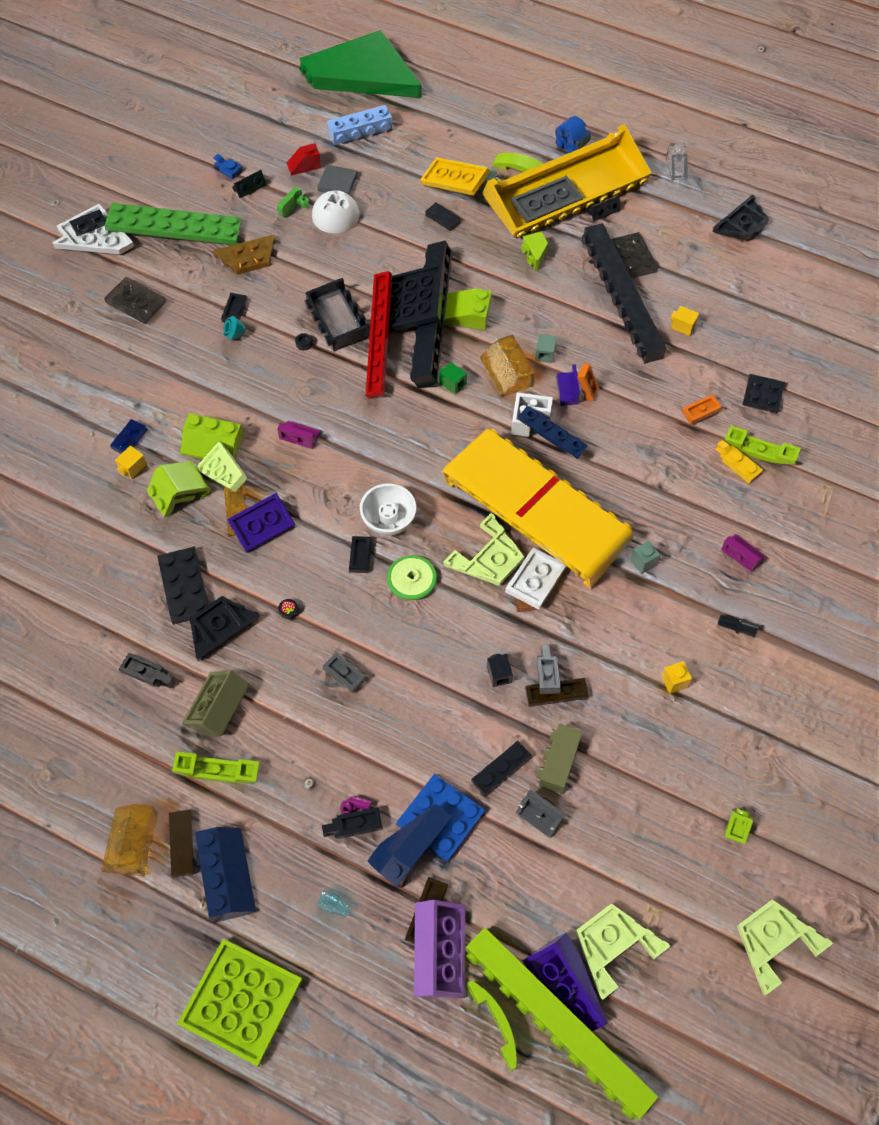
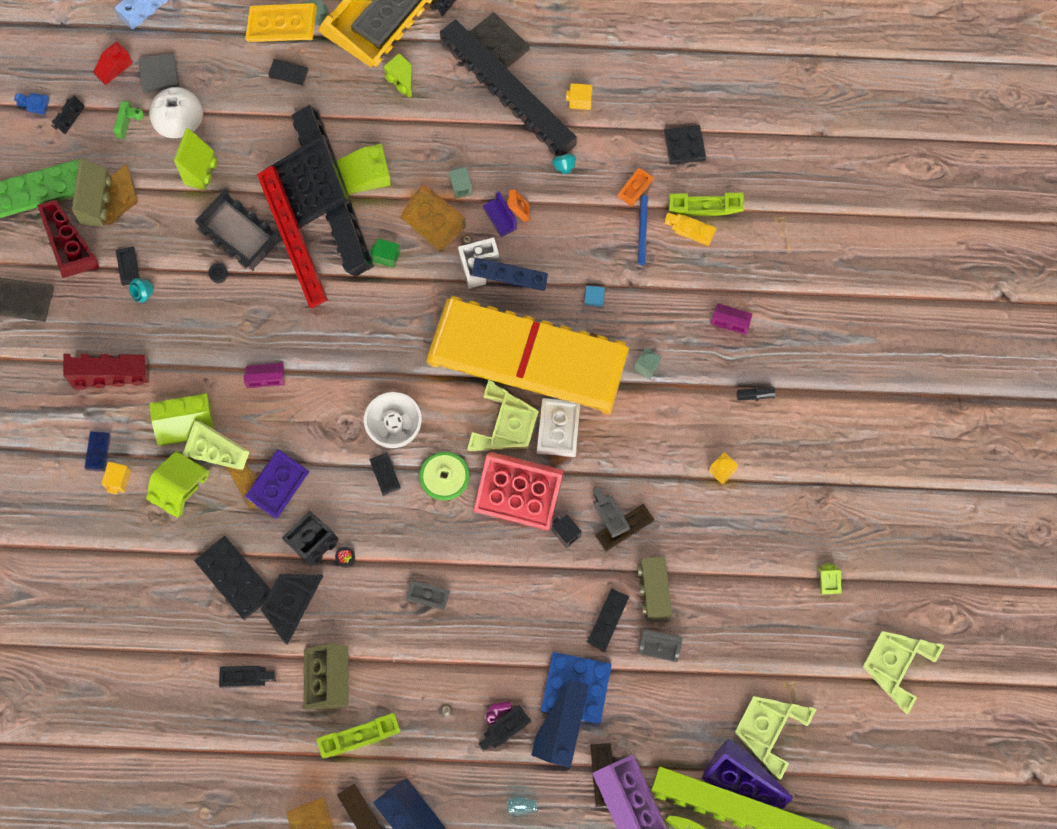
camera: 25 degrees left, 10 degrees up
(169, 376) = (105, 370): none -> dark red wedge
(192, 273) = (67, 245): none -> dark red wedge
(232, 239) = (91, 193): none -> olive slope
(266, 580) = (310, 539): none -> black plate
(328, 247) = (195, 161): none -> lime slope
(472, 617) = (518, 490): none -> coral slope
(622, 483) = (594, 296): none -> dark azure tile
(645, 366) = (564, 163): none -> teal cone
(693, 445) = (642, 230): none -> blue bar

